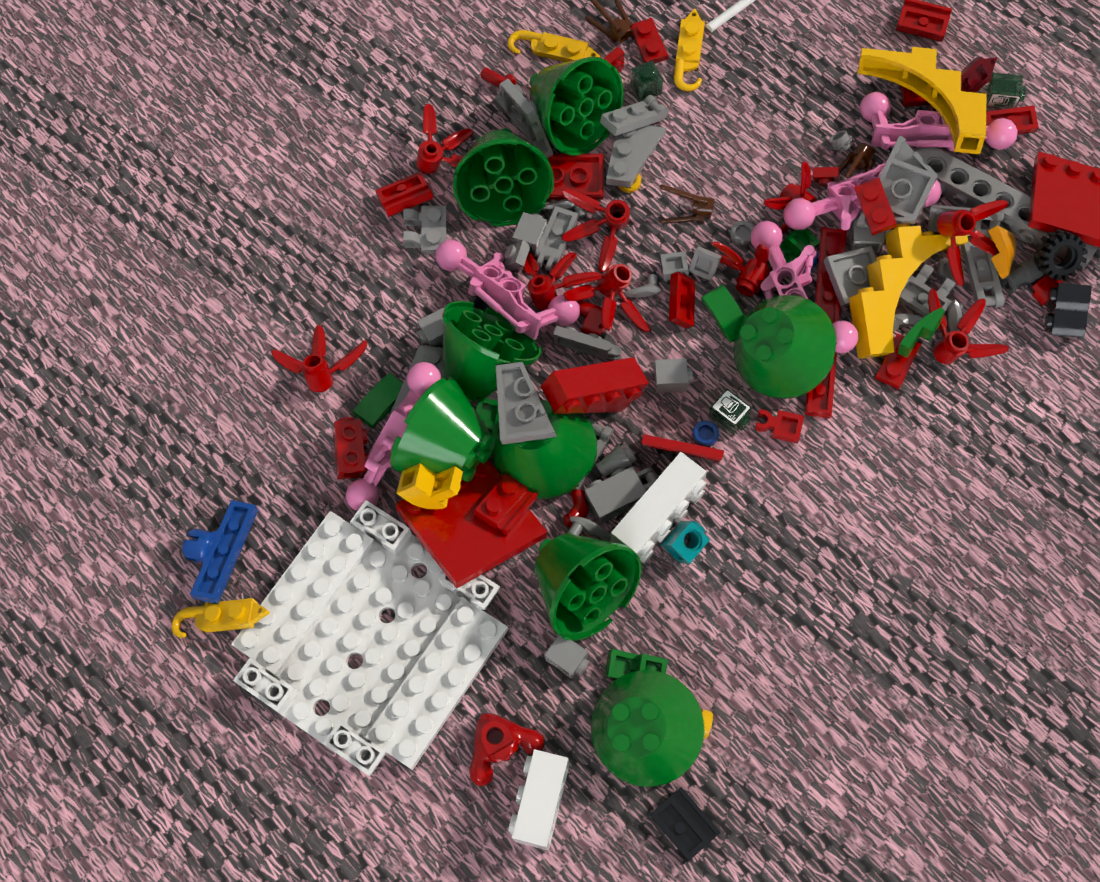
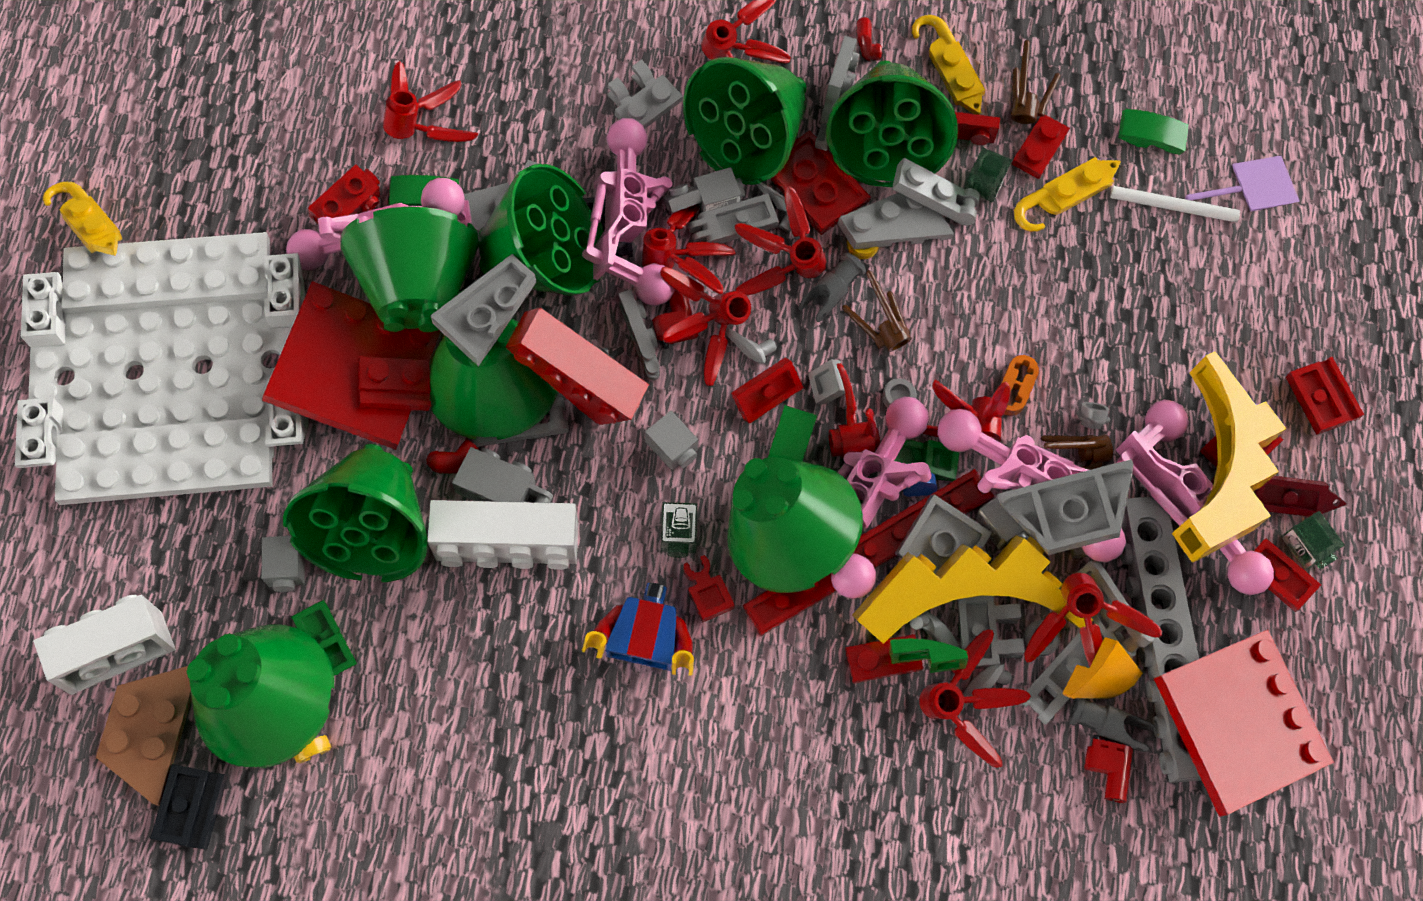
camera: 40 degrees right, 0 degrees up
(219, 550) = (151, 167): blue plate -> none
(404, 194) = (660, 49): red plate -> none
(427, 489) = (343, 293): yellow brick -> none
(497, 741) = (143, 560): red head -> none
(589, 527) = (434, 470): light grey bar -> none
(611, 817) = (146, 730): none -> nougat wing
(618, 458) = (540, 458): light grey cone -> none
(644, 213) = (835, 284): none -> dark grey piece
(673, 263) = (802, 353): light grey plate -> none
(675, 544) = (482, 595): teal brick -> none
(685, 448) = (593, 507): red tile -> none
(705, 433) = (637, 522): blue tile -> none
(784, 170) = (1025, 387): none -> orange beam
(784, 476) = (644, 633): none -> torso
(824, 175) = (1036, 427): red plate -> none
(875, 206) = (1028, 497): red plate -> none
(1068, 310) = (1096, 796): black brick -> none
(1072, 260) = (1145, 757): black tyre -> none

